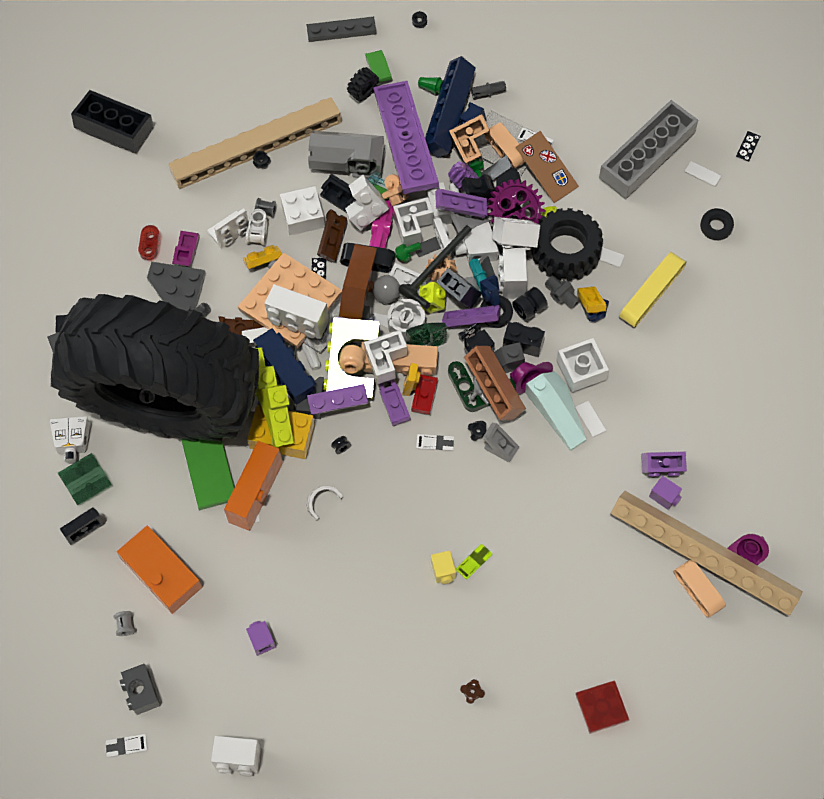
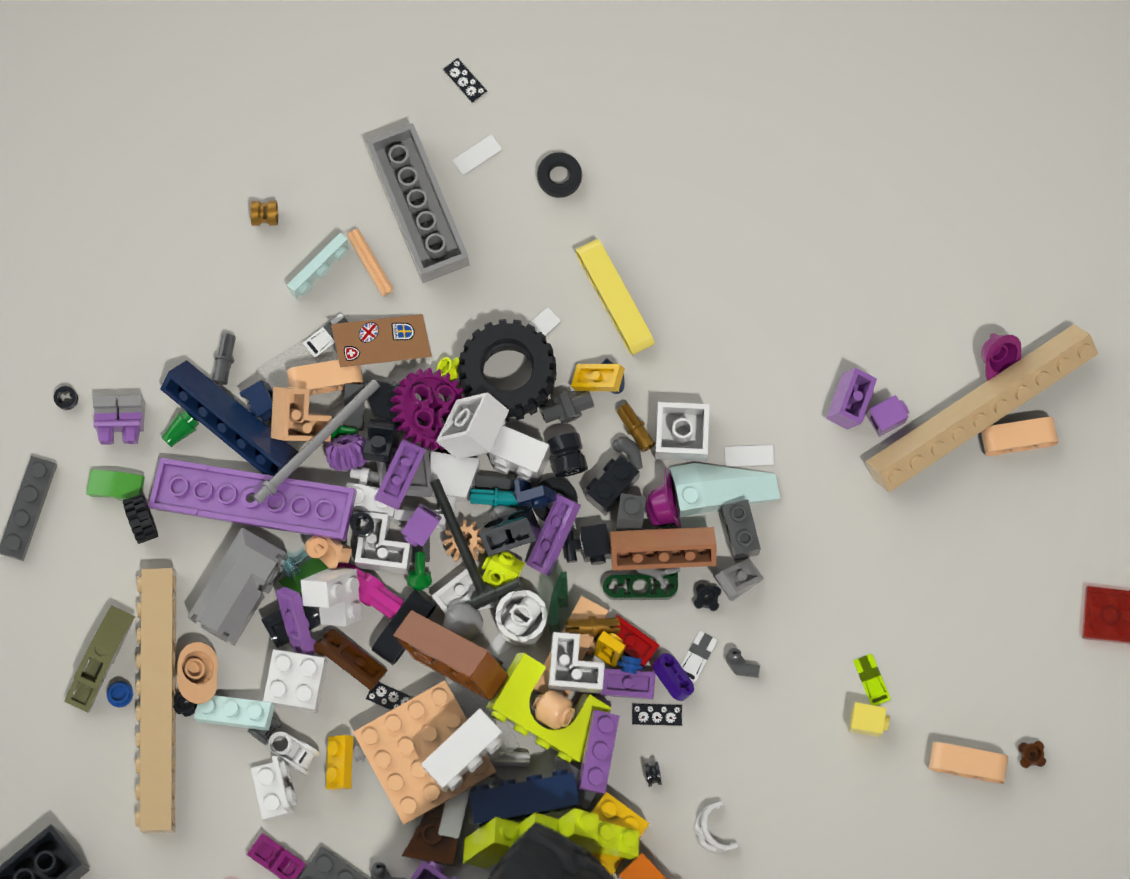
camera: 65 degrees left, 10 degrees up
(249, 122) = (119, 694): none -> blue plate
(266, 99) = (99, 658): none -> olive slope
(266, 185) = (236, 712): none -> light aqua plate
(281, 153) = (197, 672): none -> light nougat piece
(338, 192) = (295, 621): none -> medium lavender hinge
(383, 433) = (657, 714): none -> black sticker
(406, 396) = (630, 664): none -> blue plate
(412, 429) = (673, 677): none -> dark purple beam
(415, 137) = (269, 487): none -> light grey bar
(416, 194) = (370, 525): none -> black bush
(419, 358) = (592, 626): none -> pearl gold pin
(422, 48) = (119, 415): none -> medium lavender hips
(436, 232) = (420, 525): none -> medium lavender brick
(441, 469) = (739, 666): none -> dark grey arm
(445, 648) = (968, 762): none -> light nougat beam
(534, 430) = (741, 530): none -> dark grey brick
(555, 342) = (625, 445): none -> dark grey arm
(571, 337) = (635, 427): none -> pearl gold axle
(576, 113) = (319, 266): none -> light aqua plate
(593, 70) = (258, 213): none -> pearl gold wheel
(595, 142) = (370, 262): none -> light nougat axle

